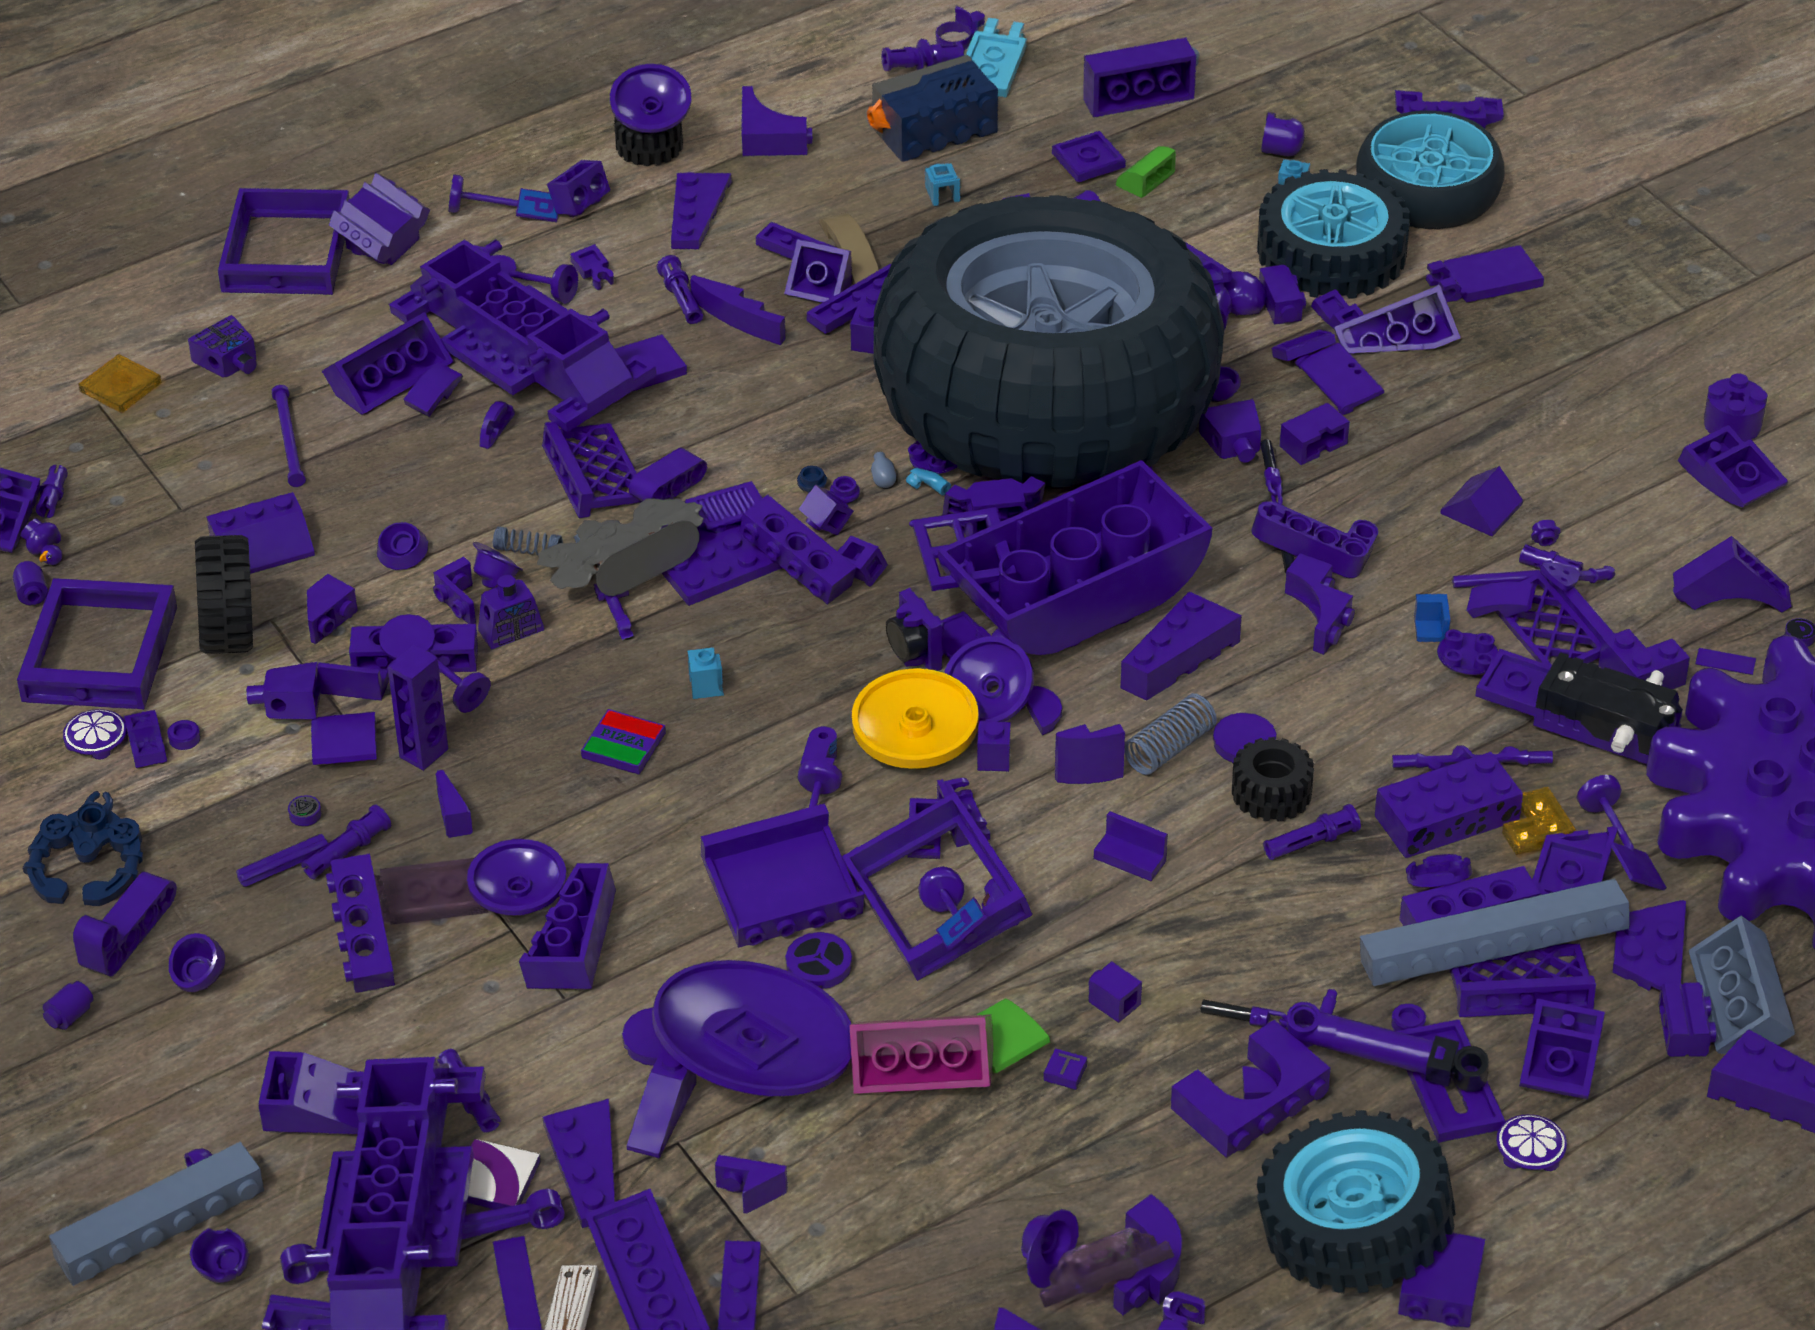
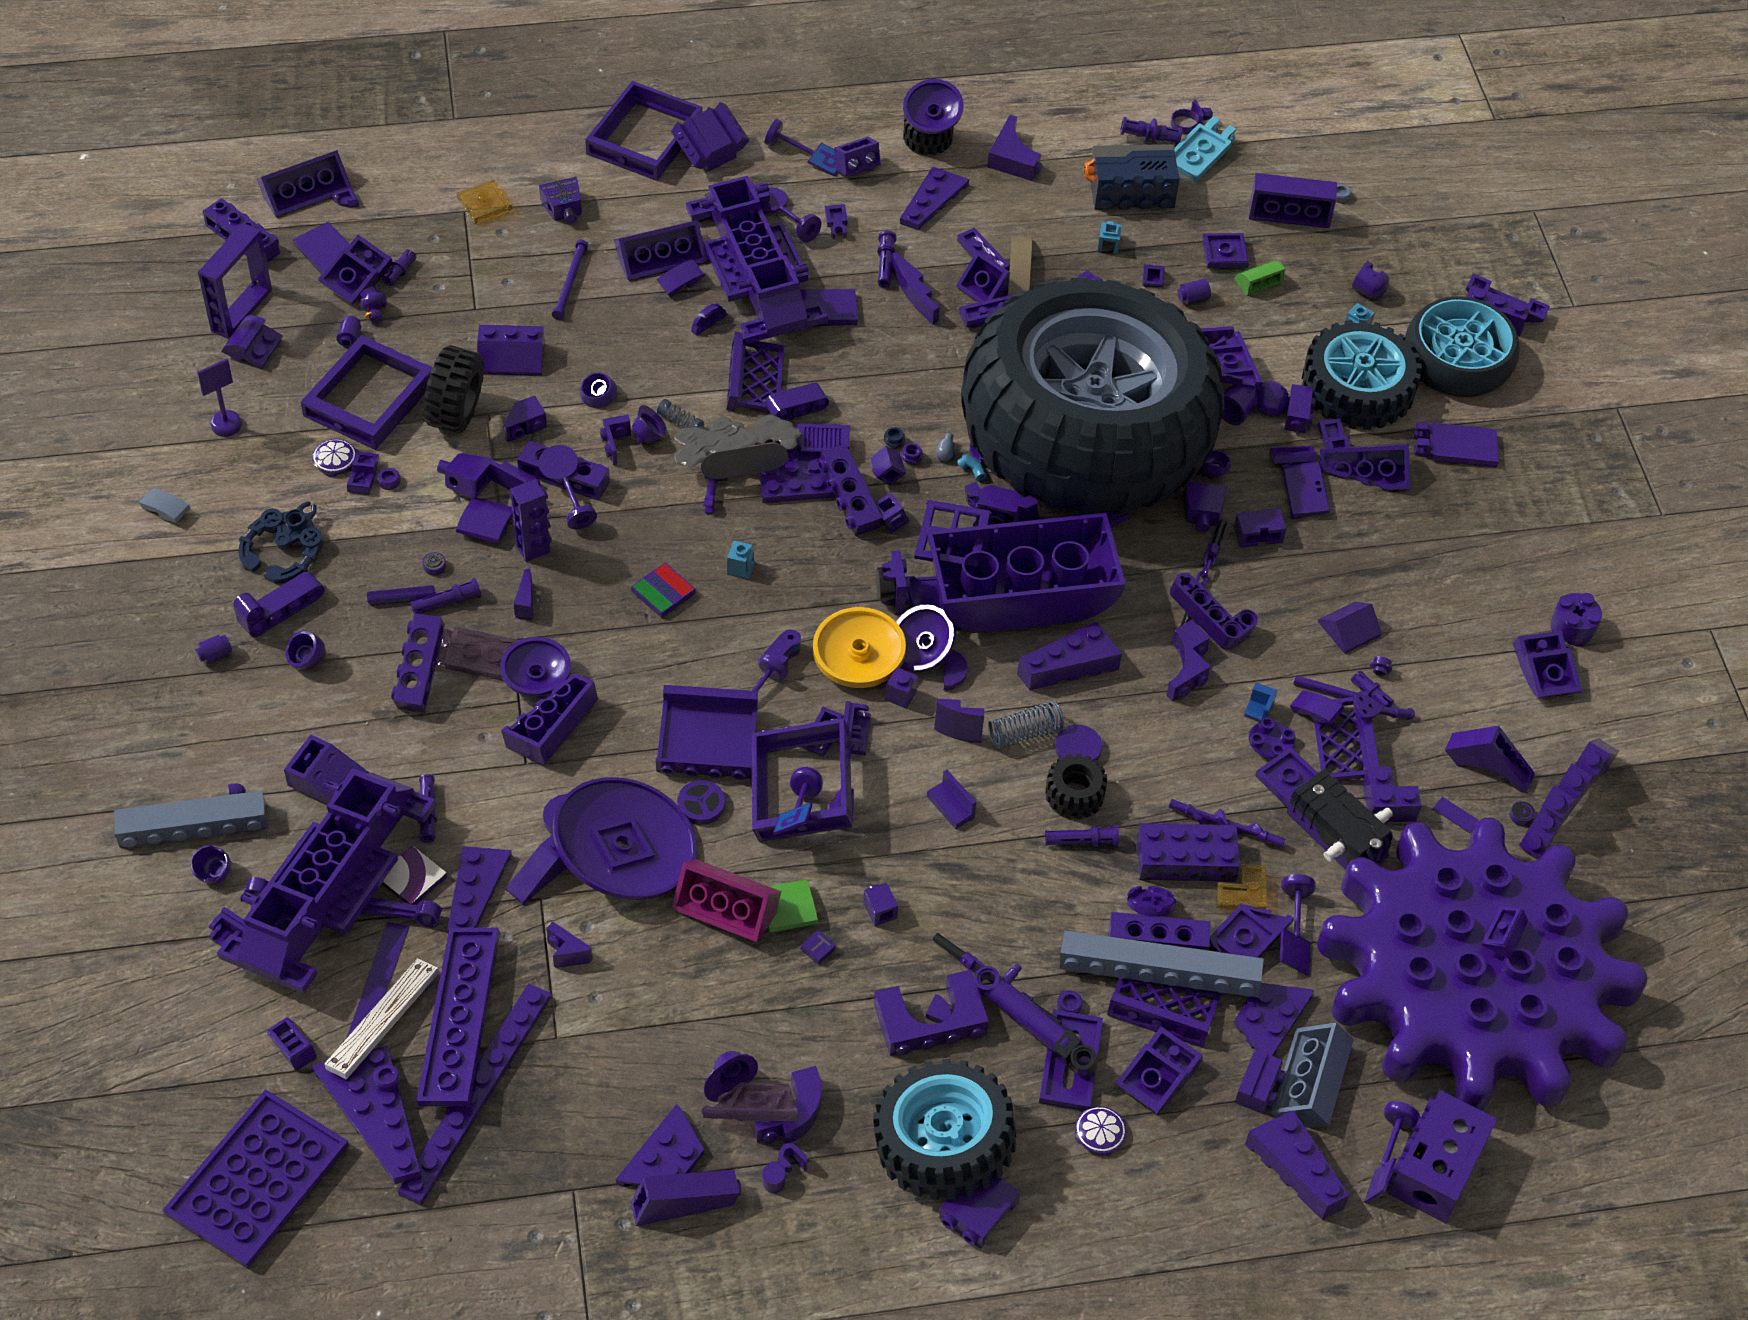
camera: 20 degrees right, 10 degrees up
(508, 613) = (636, 467): dark purple torso -> none

